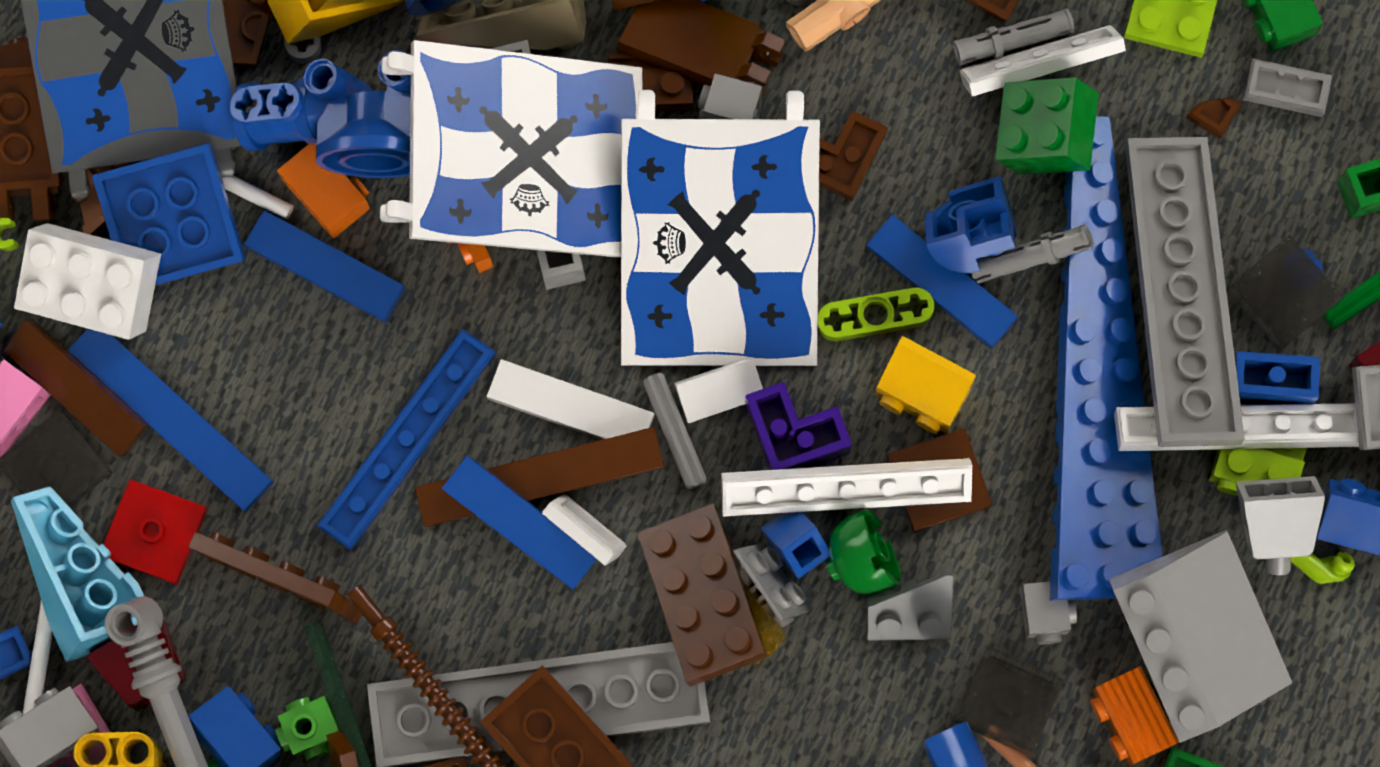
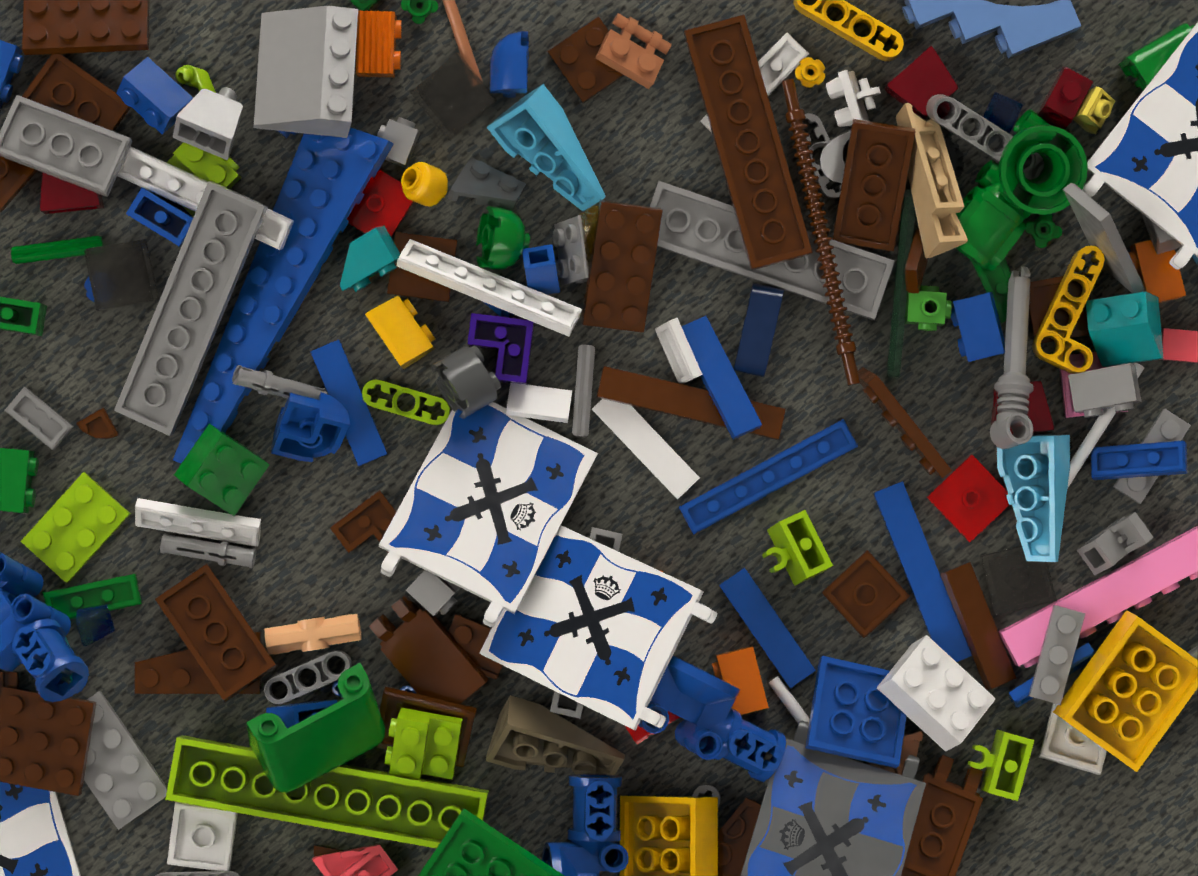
camera: 155 degrees left, 10 degrees up
(226, 359) = (865, 594): none -> reddish brown plate
(329, 367) = (797, 548): none -> lime brick
(501, 603) = (758, 329): none -> dark blue beam
(816, 364) = (466, 381): none -> dark grey brick
(874, 706) = (543, 137): none -> medium azure wedge
(988, 575) = (424, 184): none -> yellow head
(1009, 454) = (367, 256): none -> teal slope
(1023, 526) = (381, 205): none -> red plate

